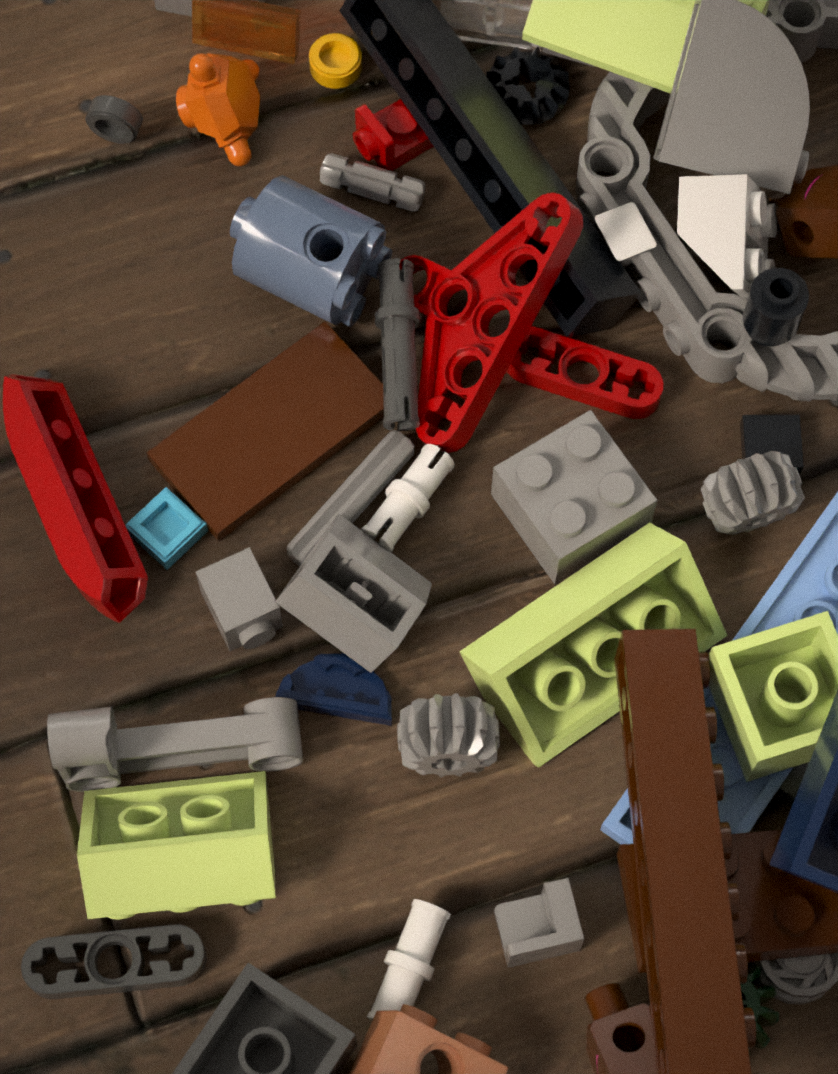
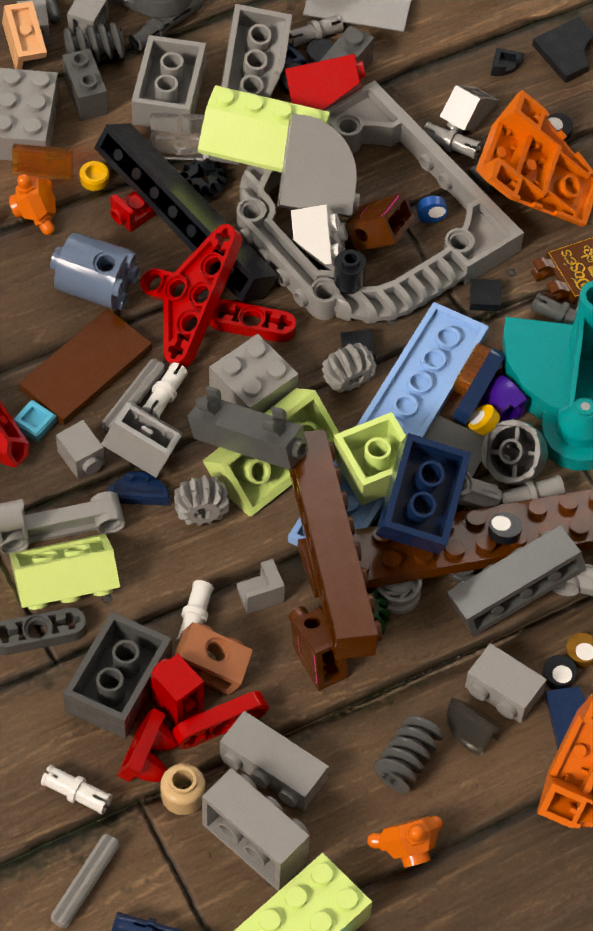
camera: 10 degrees left, 10 degrees down
(372, 182) = (124, 235): light grey axle -> none
(397, 323) = (147, 302): dark grey pin -> none
(551, 623) = (248, 430): none -> dark grey brick
(625, 231) = (266, 244): white sticker -> none

